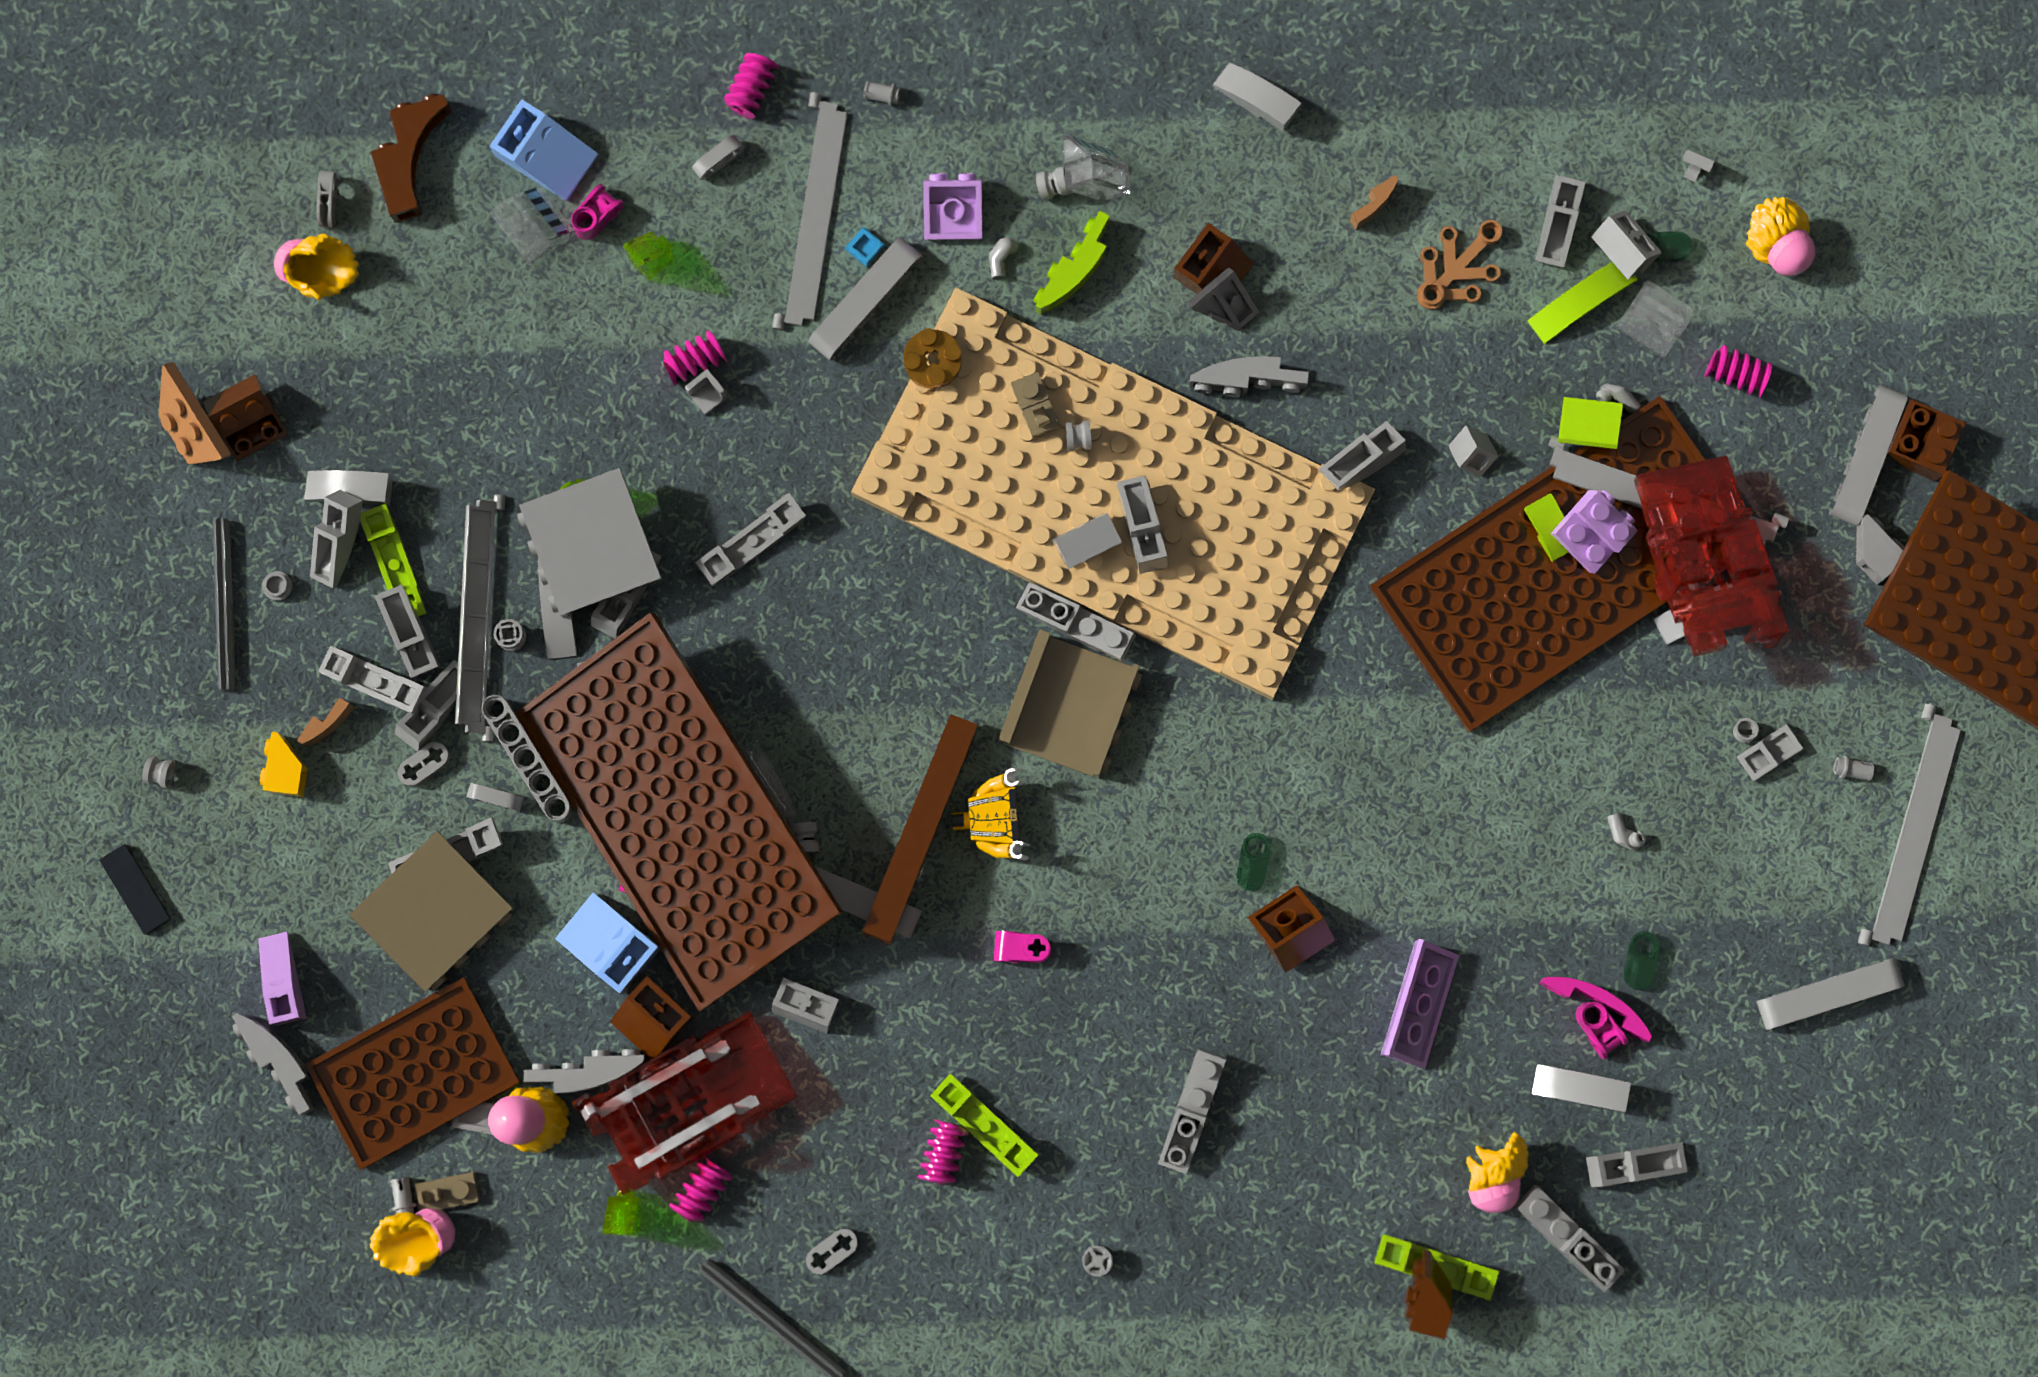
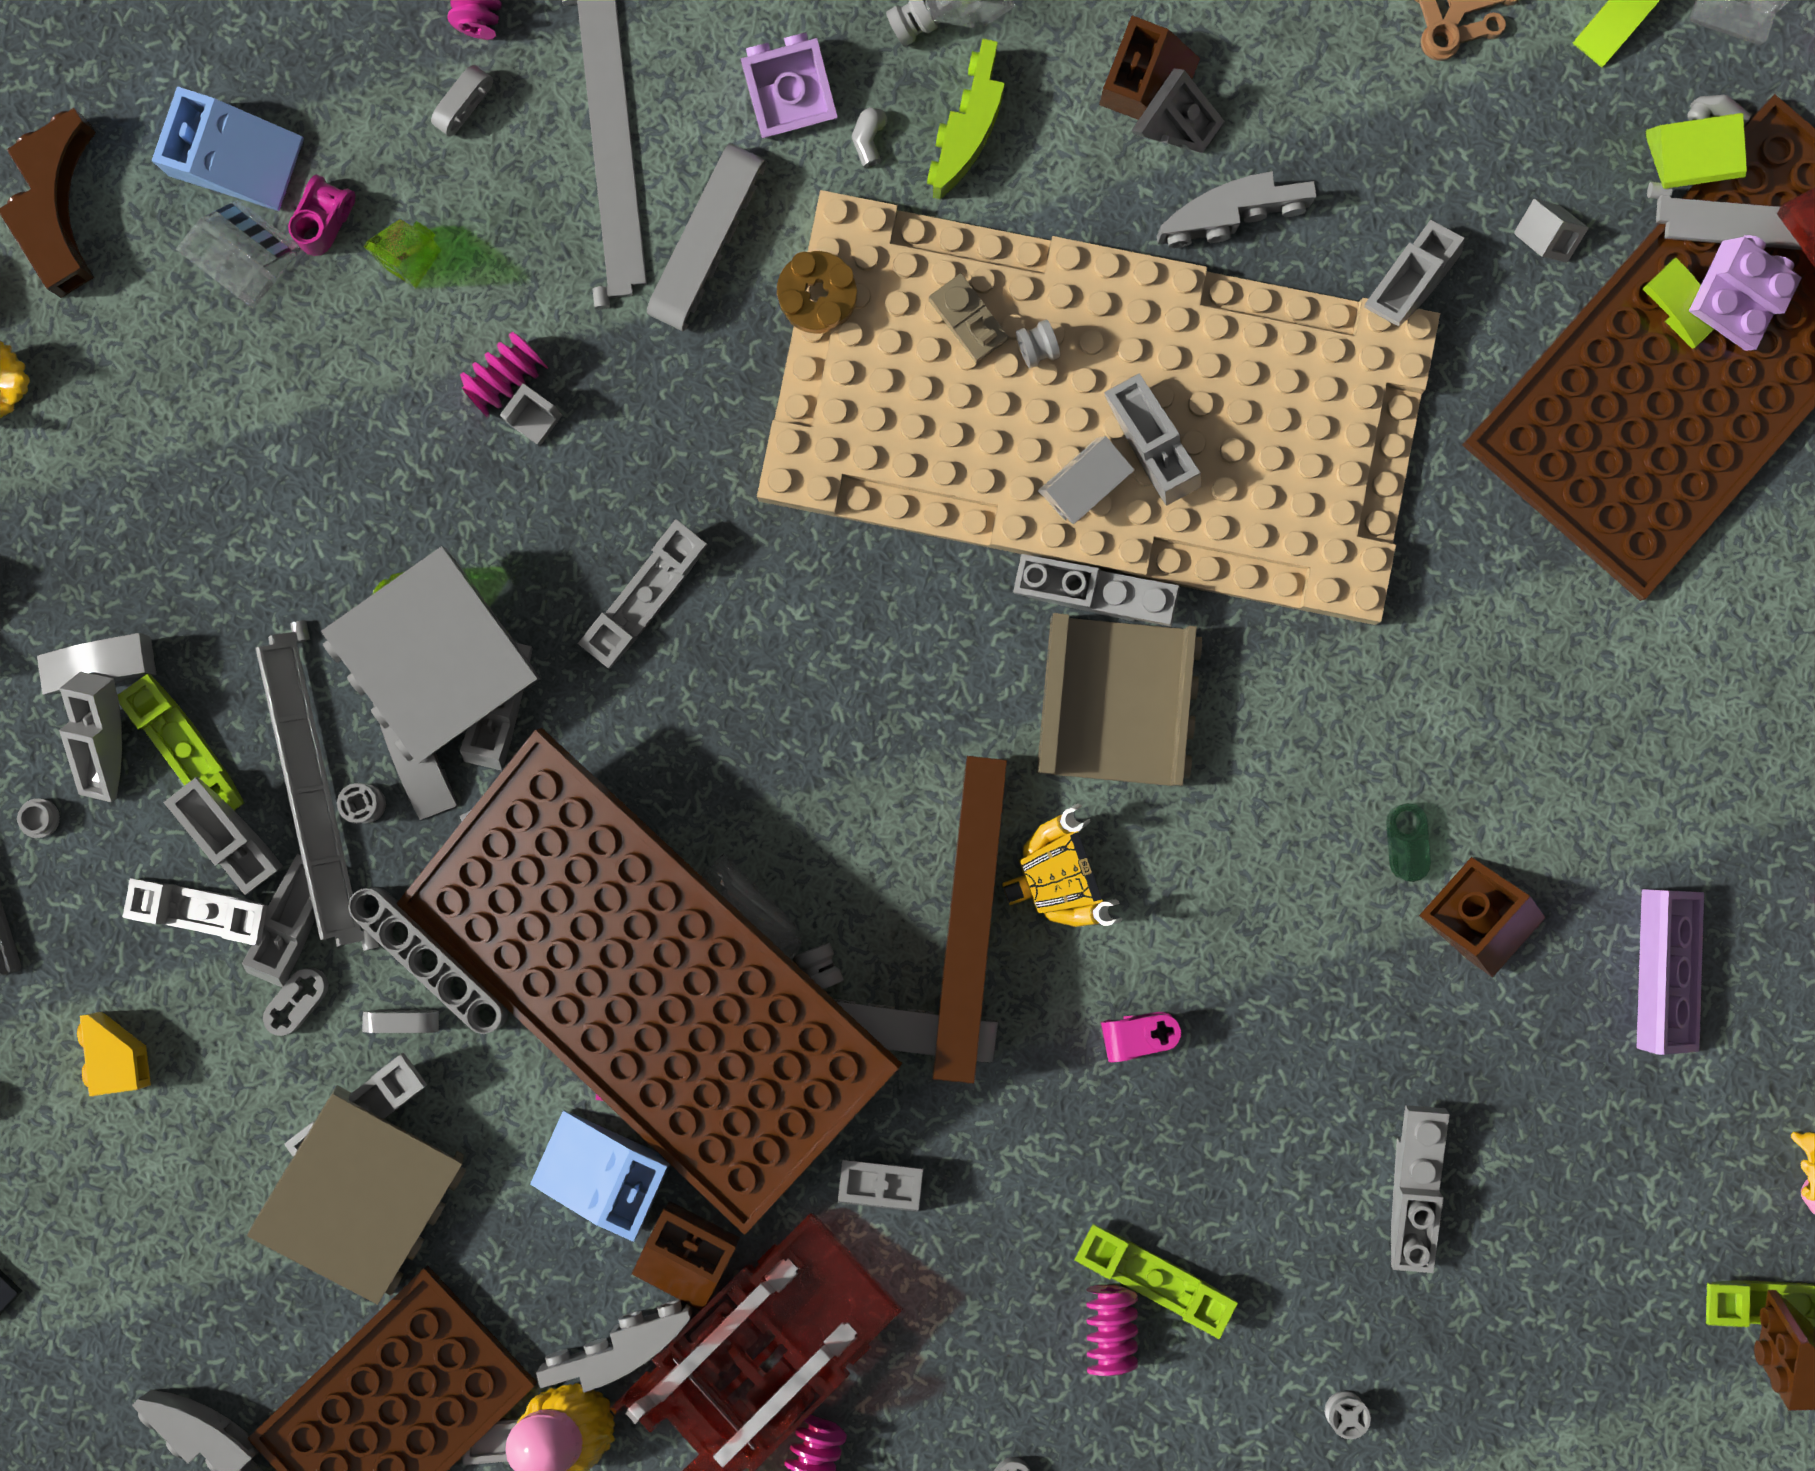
camera: 15 degrees left, 5 degrees up
(280, 980) = (184, 1338): lavender slope -> none
(318, 730) = (145, 992): medium nougat slope -> none
(865, 247) = (687, 169): dark azure tile -> none

